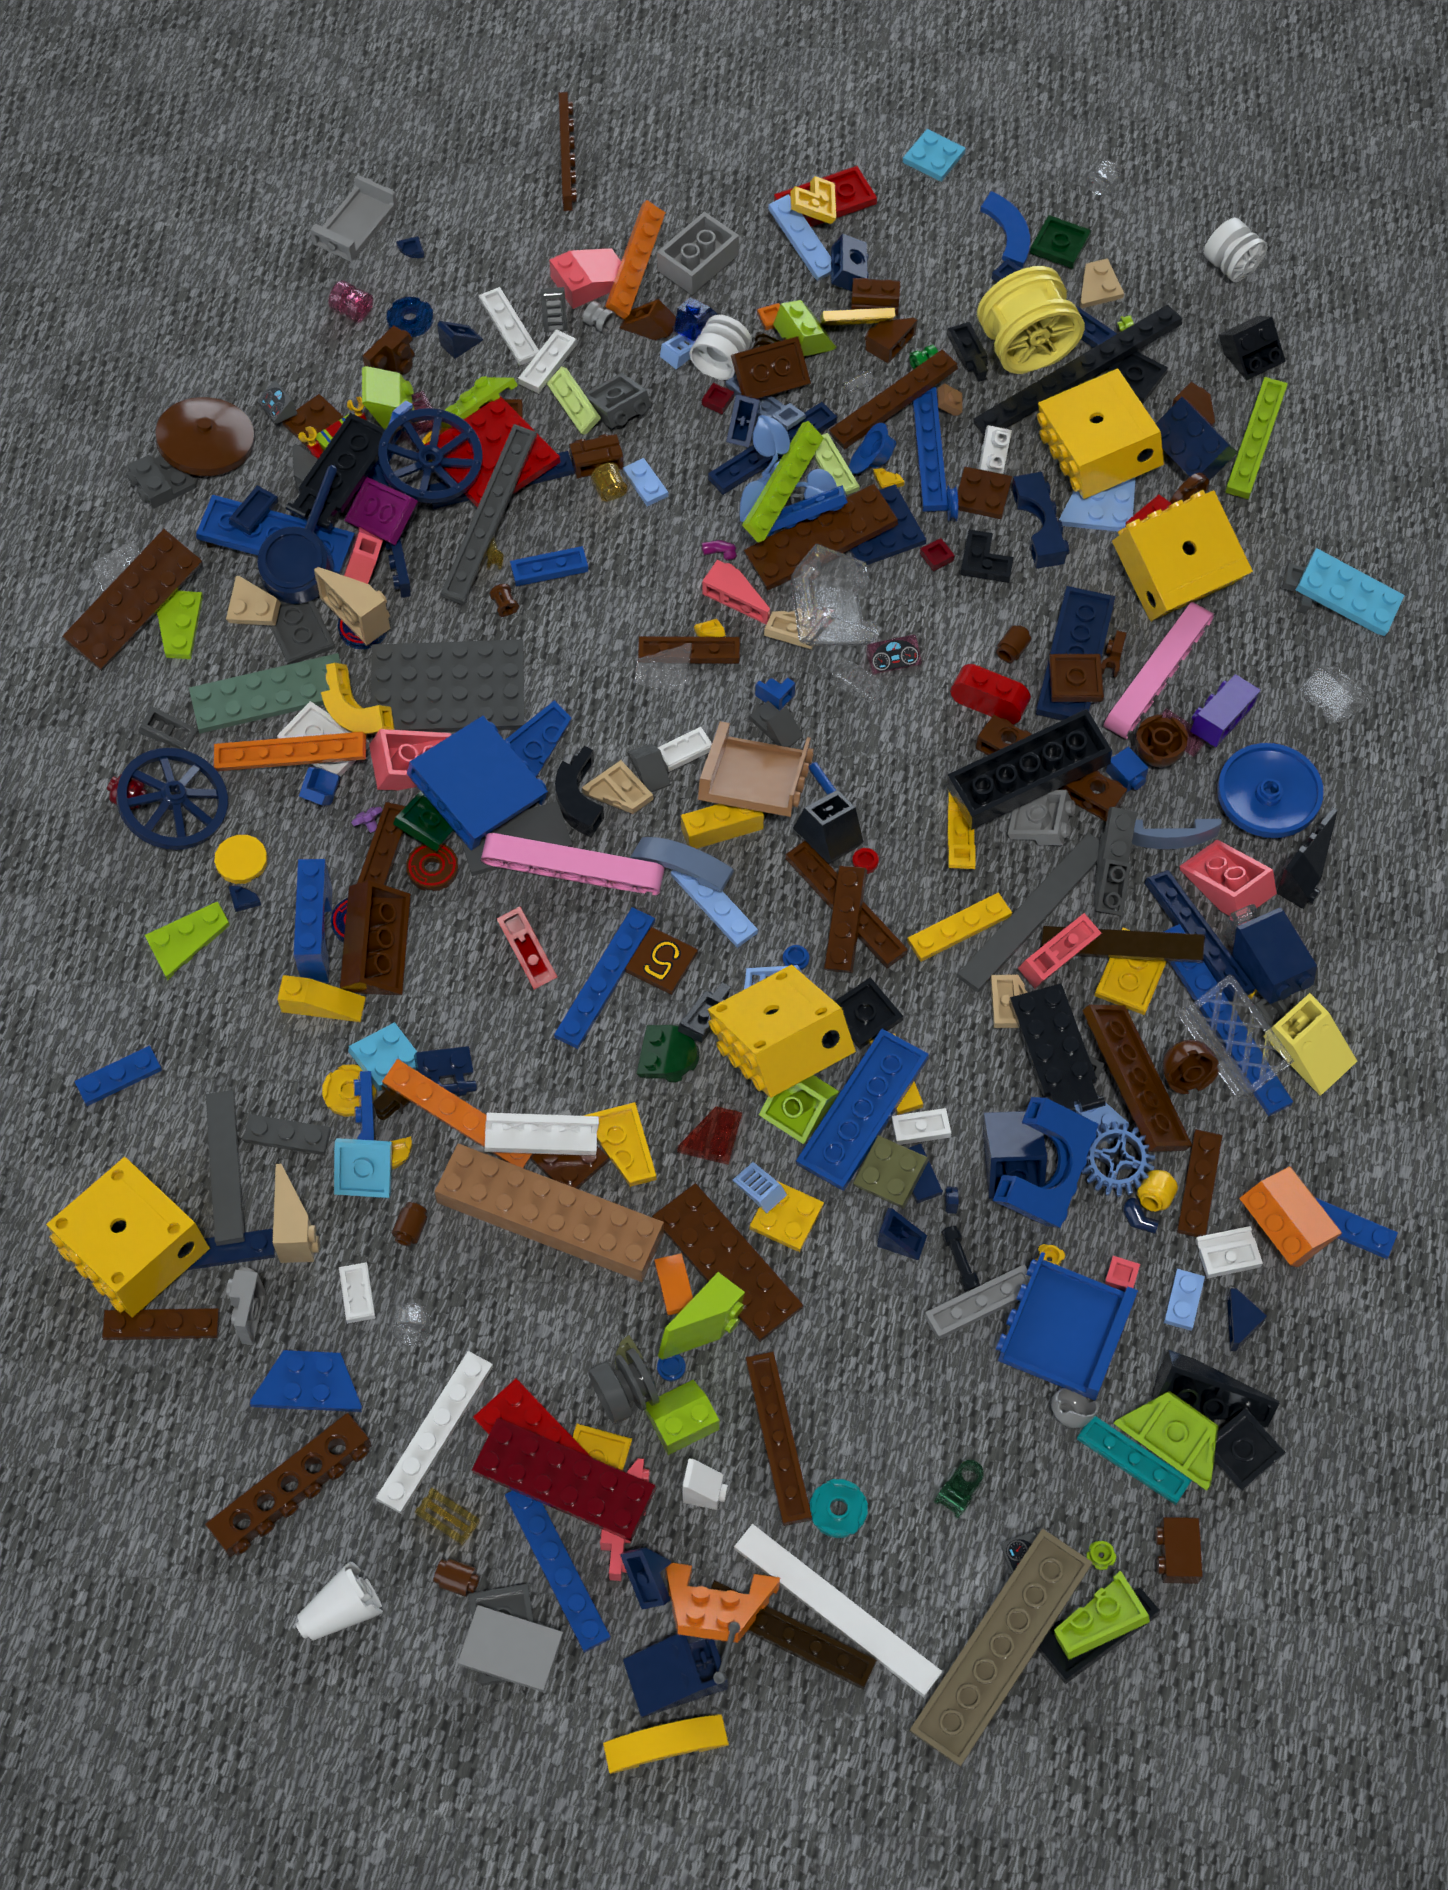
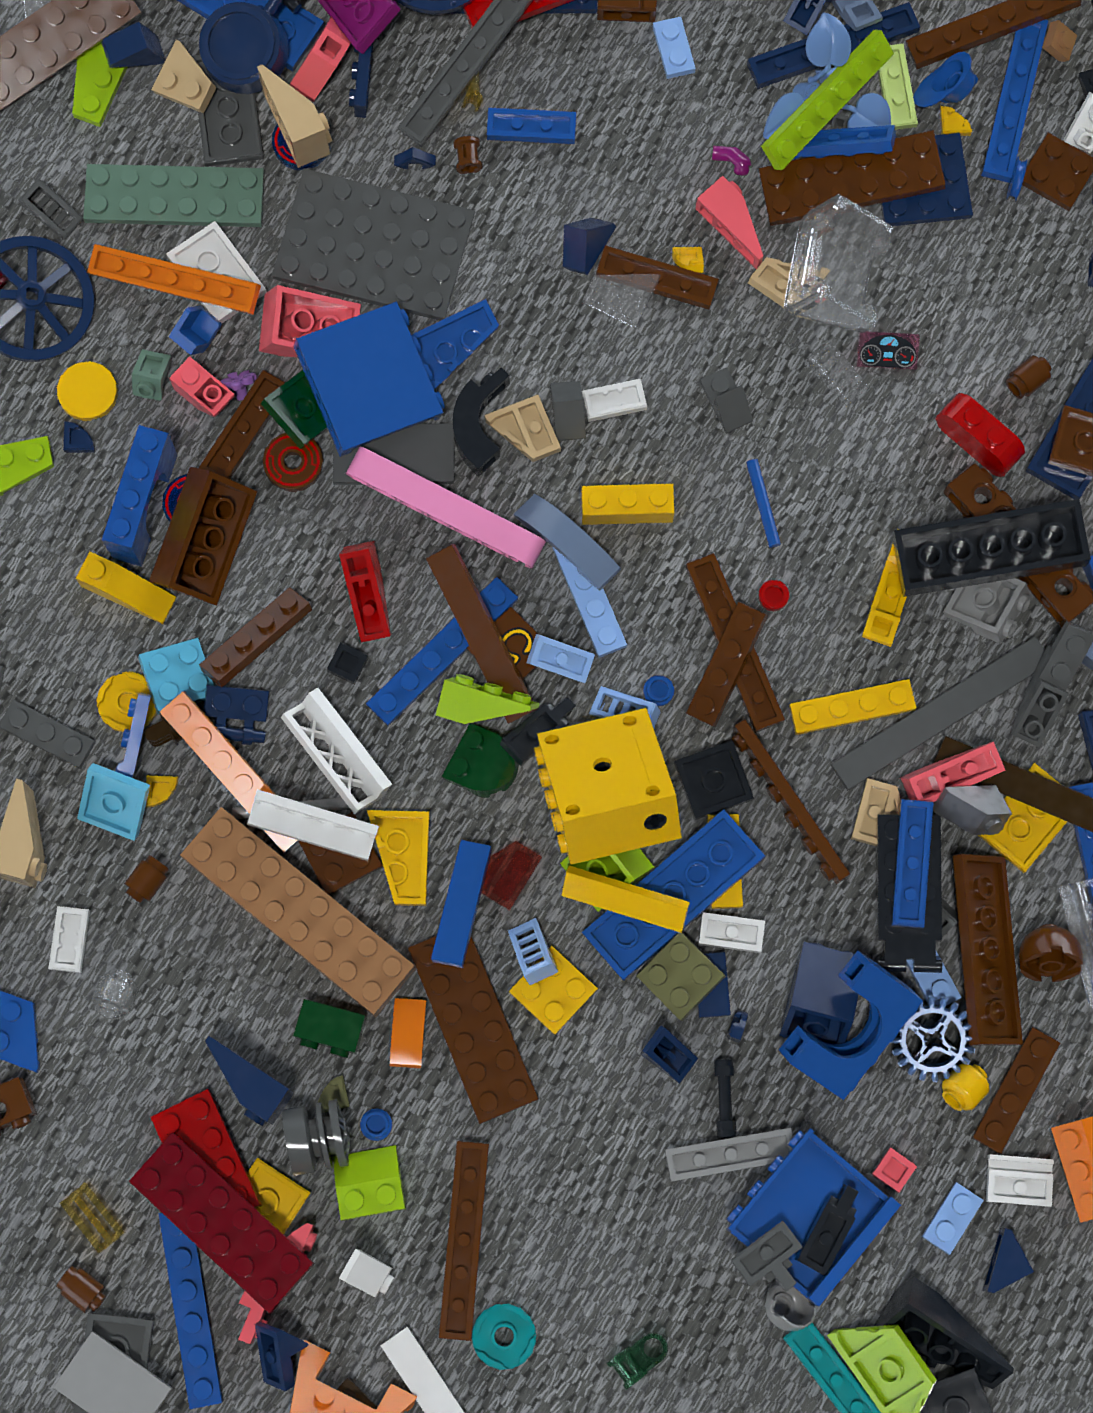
camera: 15 degrees right, 15 degrees up
(201, 590) = (133, 47): none -> dark blue slope
(291, 832) = (150, 374): none -> sand green bracket
(337, 828) = (200, 388): none -> coral slope
(346, 710) = (251, 248): yellow arch -> none
(434, 1432) = (106, 1120): white plate -> none
(444, 1006) = (255, 637): none -> reddish brown plate
(461, 612) = (414, 156): none -> dark blue tile
(528, 1007) = (347, 663): none -> black plate
(546, 1073) = (344, 744): none -> white fence
(556, 1359) = (252, 1087): none -> dark blue slope
(606, 1298) = (329, 1027): none -> dark green brick
(609, 482) = (631, 38): clear yellow piece -> none
(621, 640) = (584, 243): none -> dark blue slope
(635, 950) = (476, 623): none -> reddish brown tile
(646, 1006) = (471, 702): none -> lime slope
(687, 1165) = (461, 903): none -> blue tile
(704, 1318) = (428, 1088): lime slope -> none
(706, 953) = (560, 658): none -> light blue plate
(754, 774) = (680, 458): medium nougat panel -> none
(775, 693) = (738, 359): blue panel -> none
(824, 1119) = (625, 899): none -> yellow tile
(830, 826) = (745, 548): black slope -> none
(937, 554) = (978, 237): dark red plate -> none
(941, 1017) = (796, 813): none -> reddish brown plate
(981, 563) = (1024, 261): black plate -> none
(1043, 1367) = (769, 1257): none -> dark grey hinge
(1051, 1024) = (912, 863): none -> blue tile
(1053, 1252) = (820, 1118): yellow plate -> none
(1085, 1332) = (829, 1231): none -> black hinge
(1086, 970) = (974, 808): none -> flat silver slope
(1136, 1217) = (932, 1108): dark blue arm -> none

